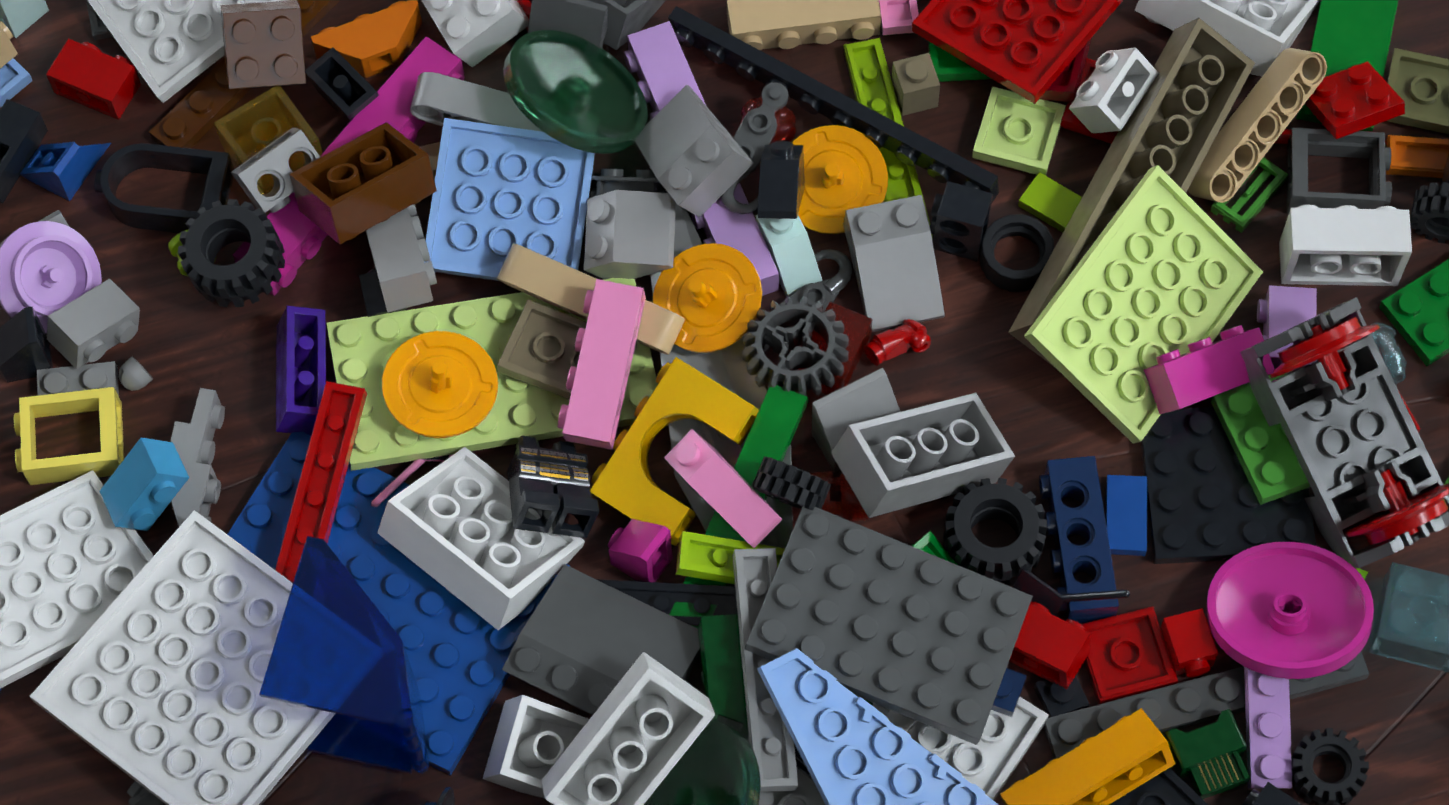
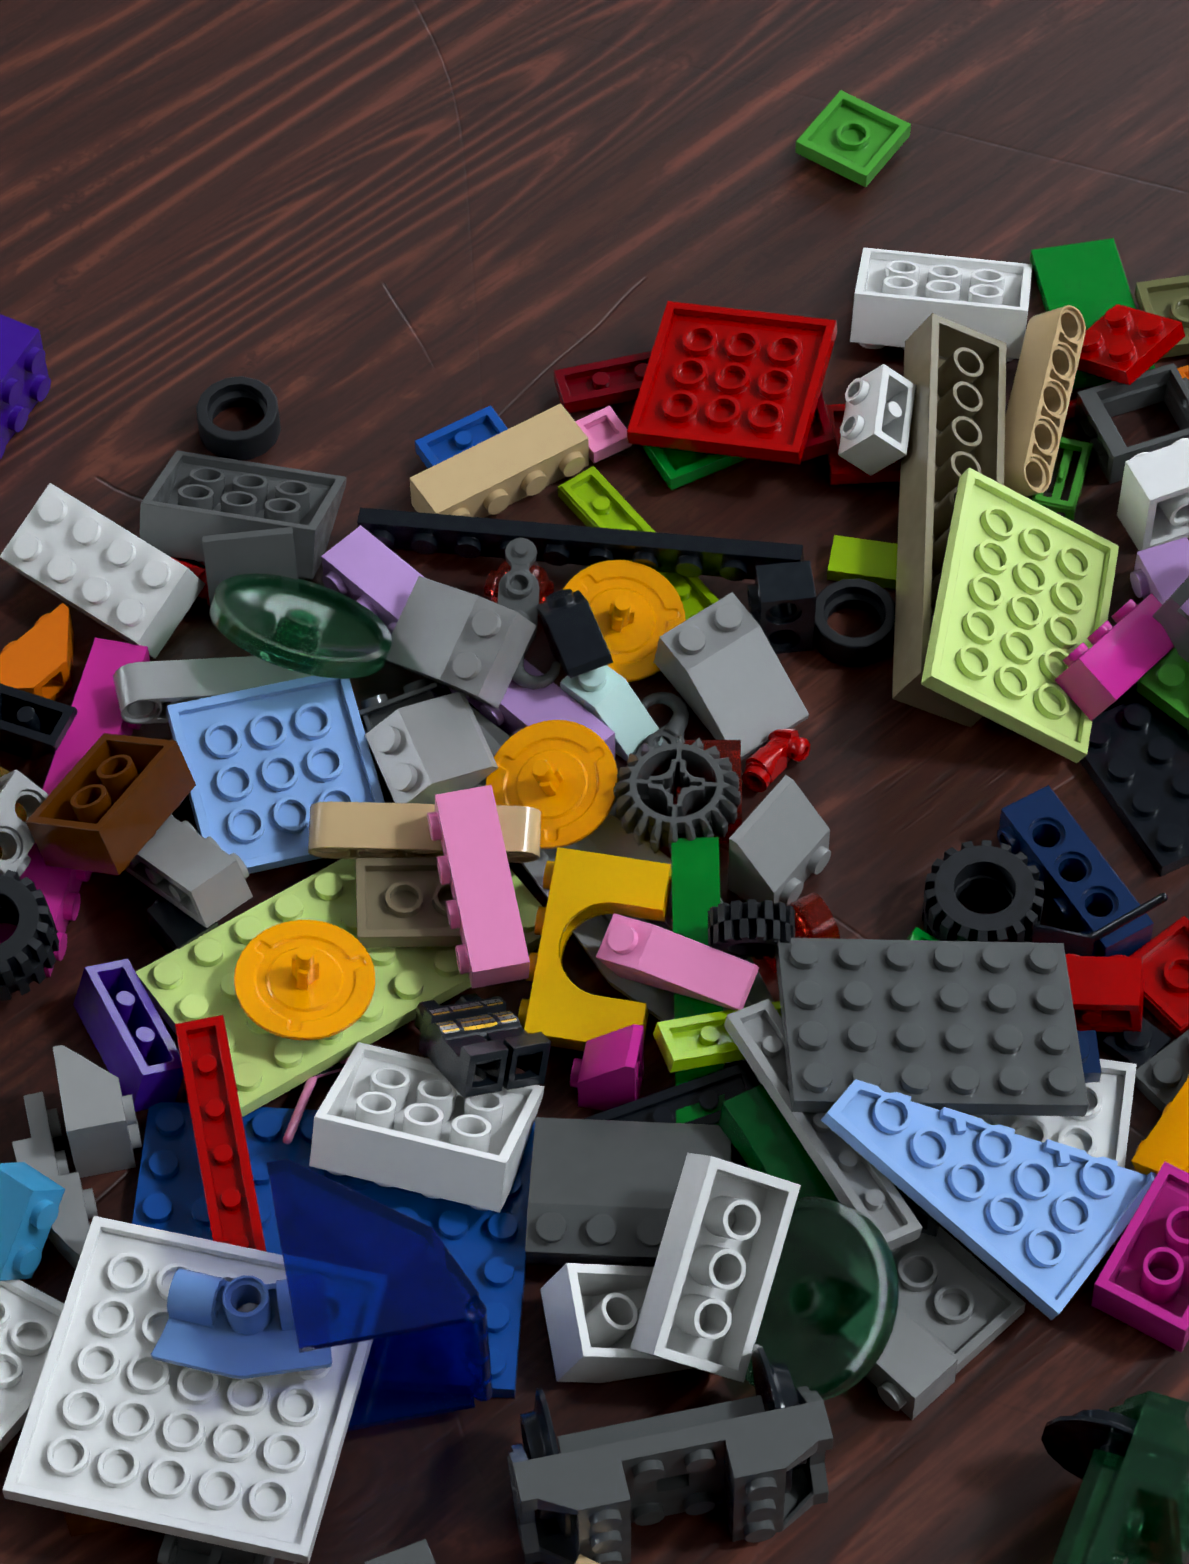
camera: 25 degrees left, 10 degrees down
(228, 641) = (216, 1338): none -> medium blue panel
(240, 426) = (96, 1115): none -> light grey slope
(915, 84) = (659, 494): dark tan brick -> none
(921, 454) = (868, 850): light grey brick -> none
(1018, 132) = (791, 502): yellowish green plate -> none
(1126, 514) = (1109, 833): blue tile -> none

